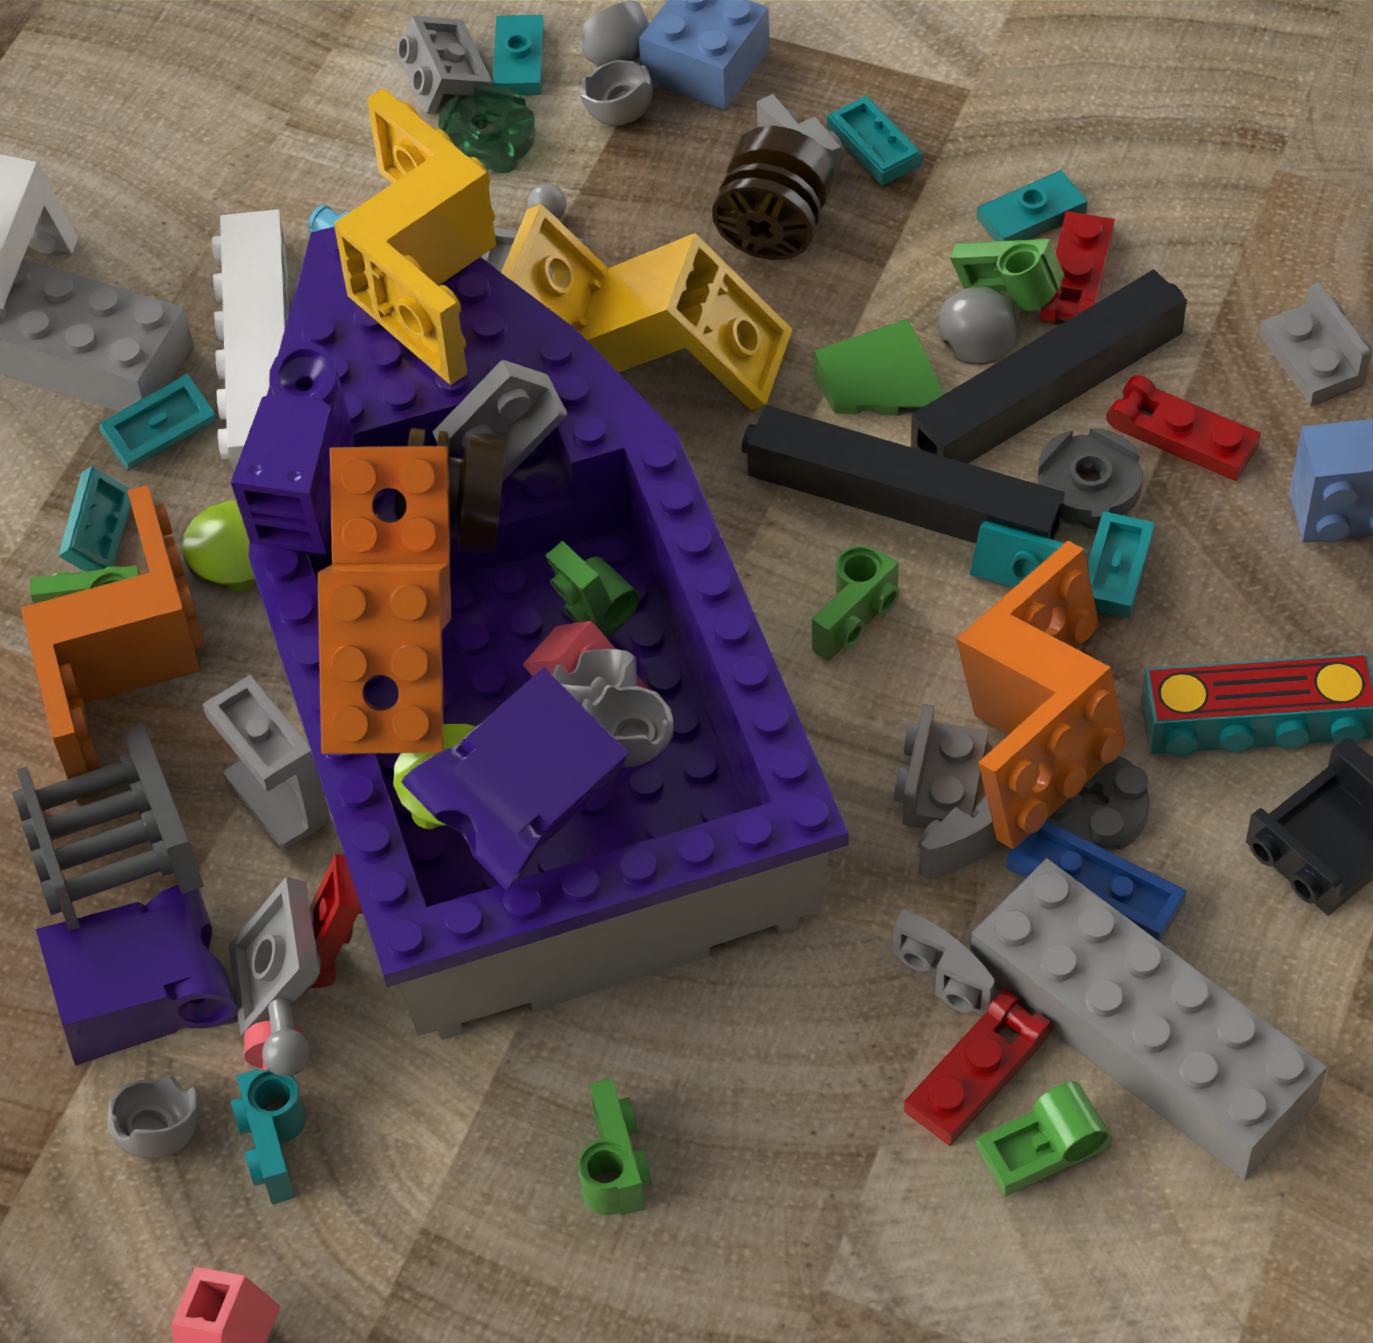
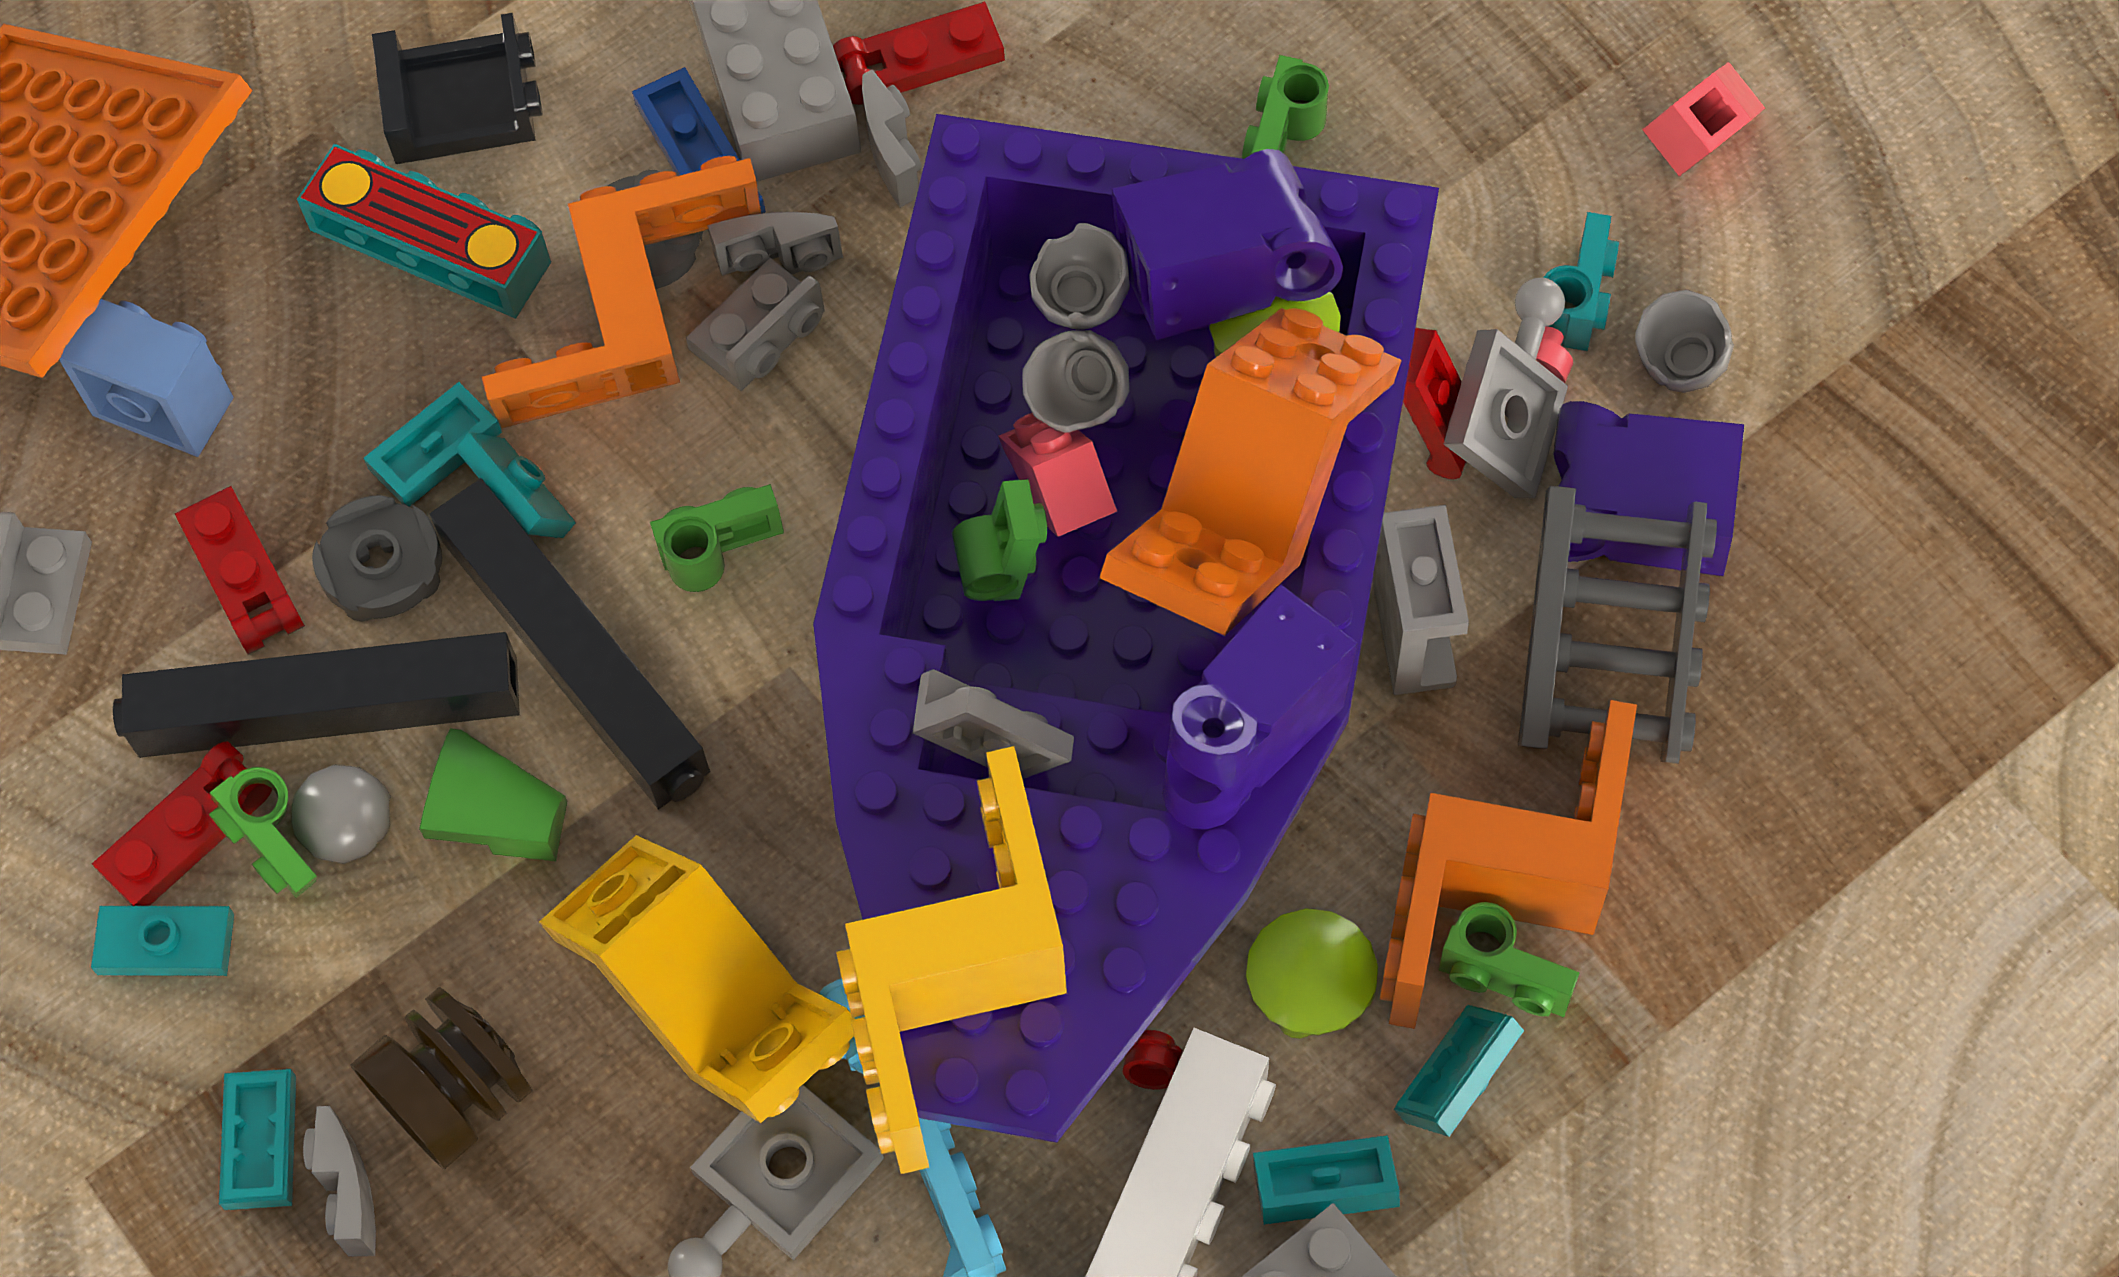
camera: 150 degrees left, 10 degrees up
(473, 489) = (1094, 651): dark brown wheel -> none

